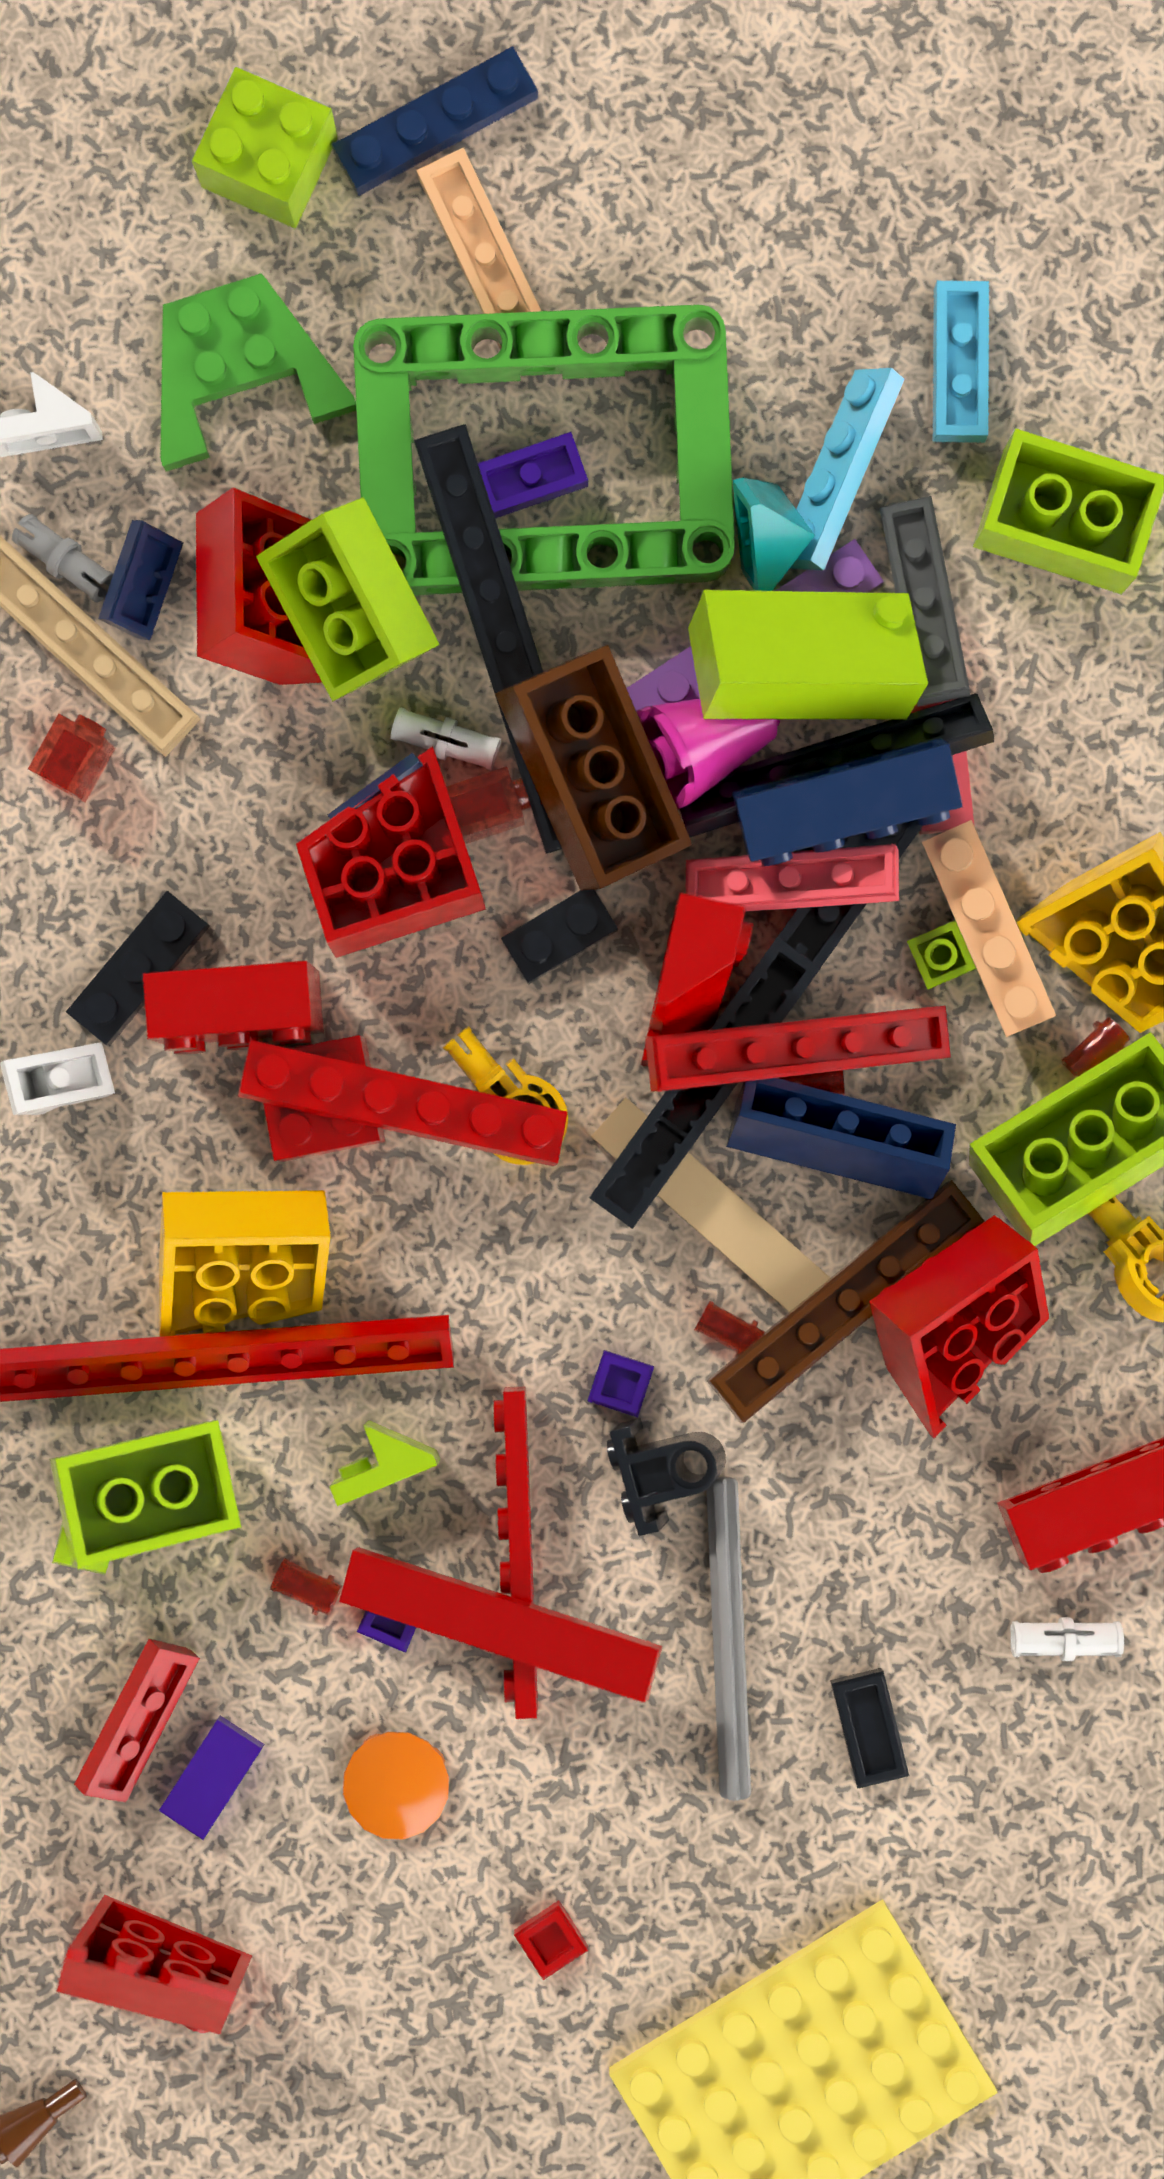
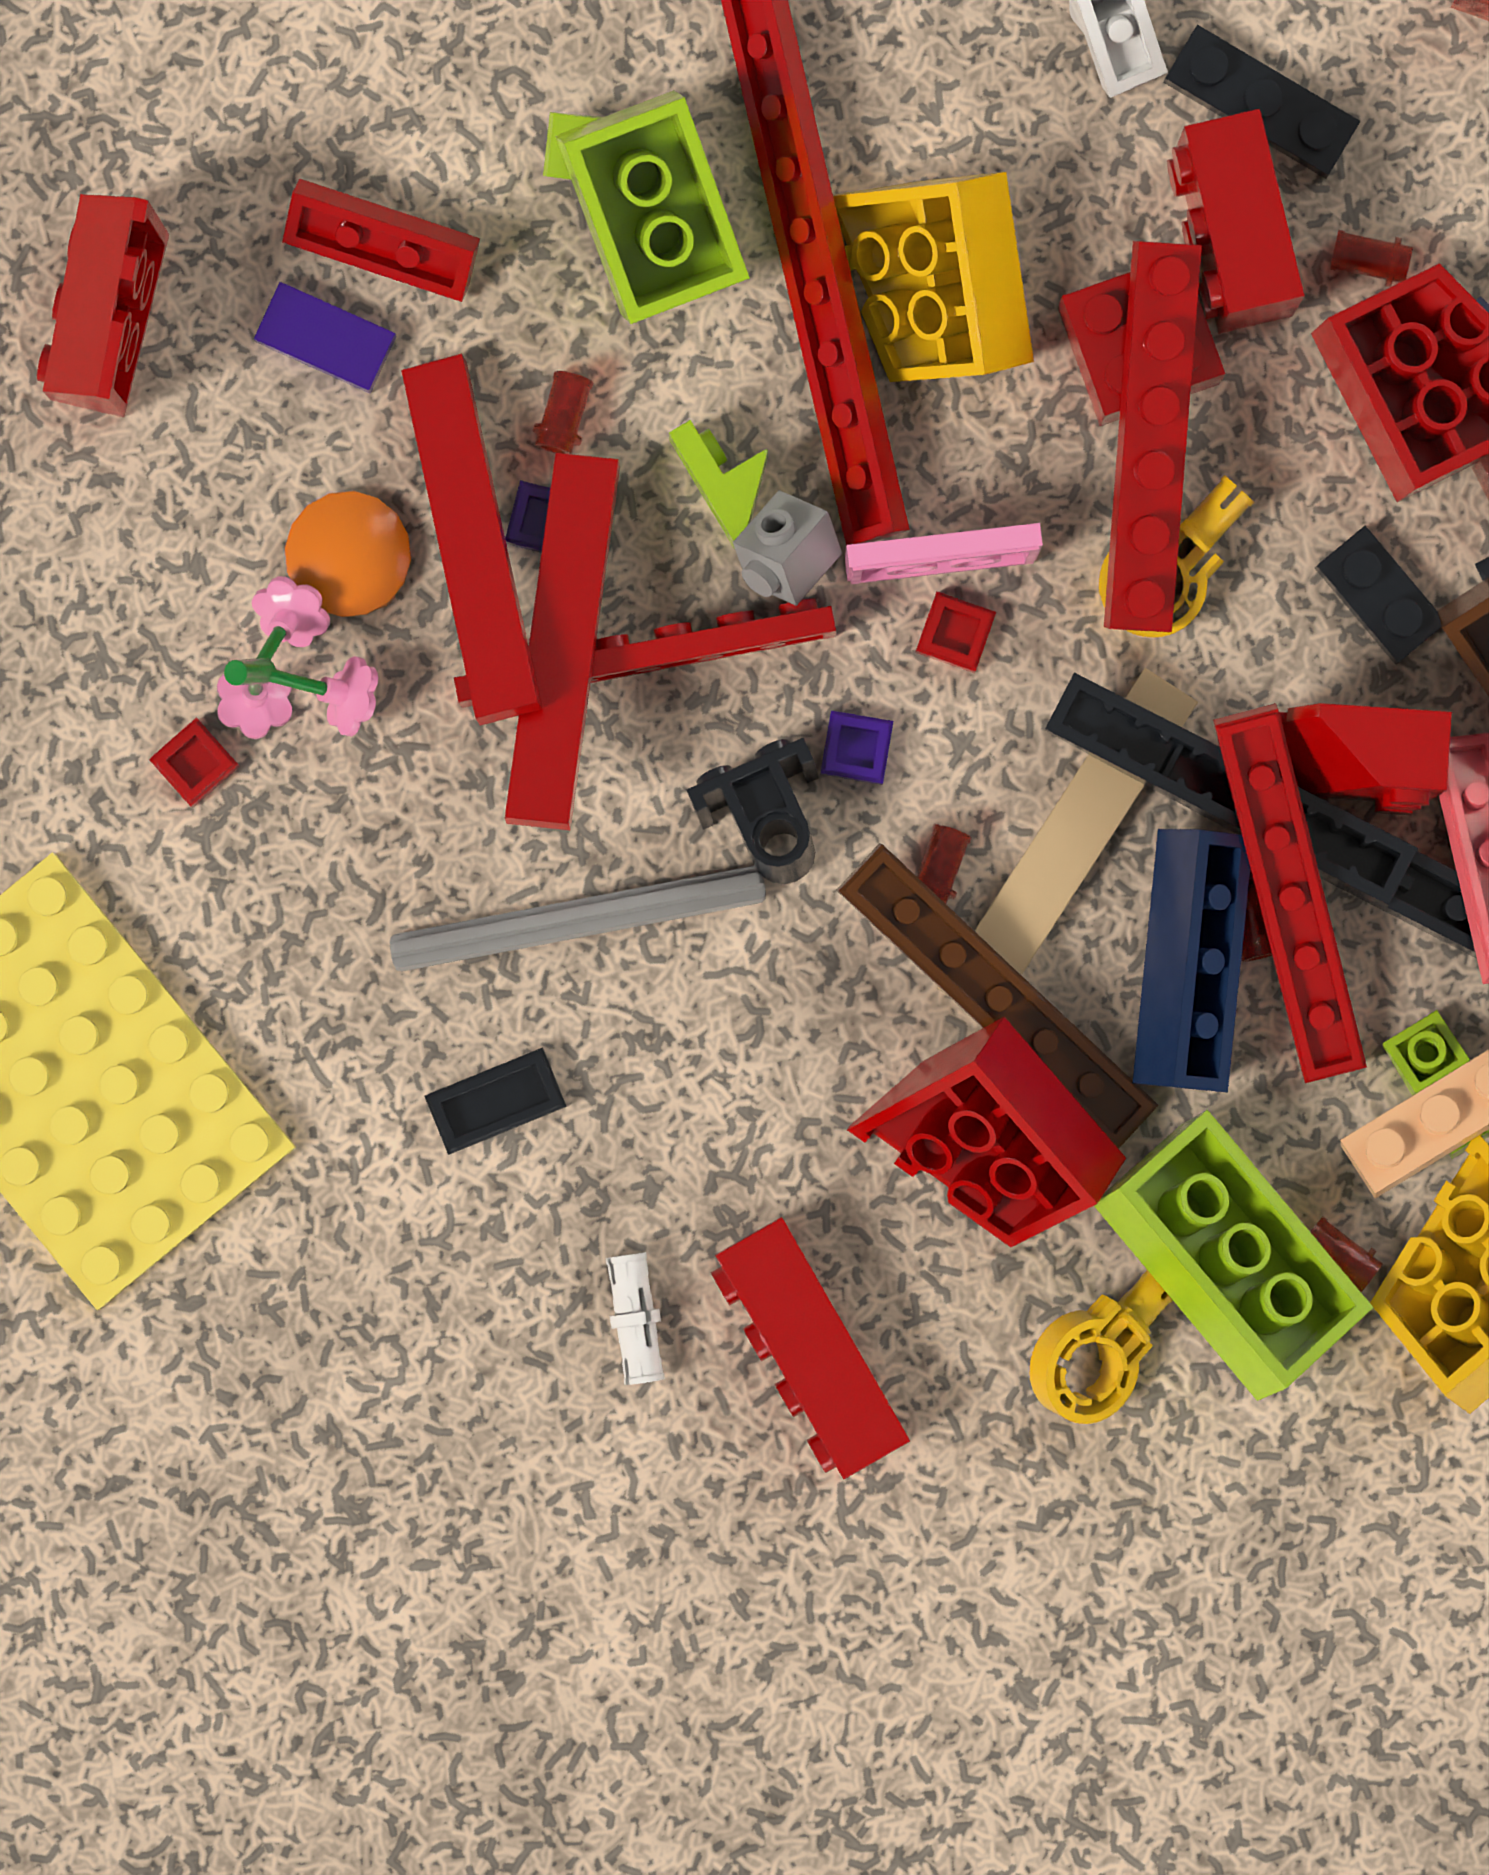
camera: 85 degrees right, 0 degrees up
(281, 898) = (1371, 257): none -> clear red pin
(403, 1687) = (471, 540): none -> red tile
(449, 1421) = (787, 548): none -> light grey brick
(473, 1294) = (943, 553): none -> bright pink tile
(505, 1877) = (257, 693): none -> bright pink plant
(537, 1287) = (955, 632): none -> red tile

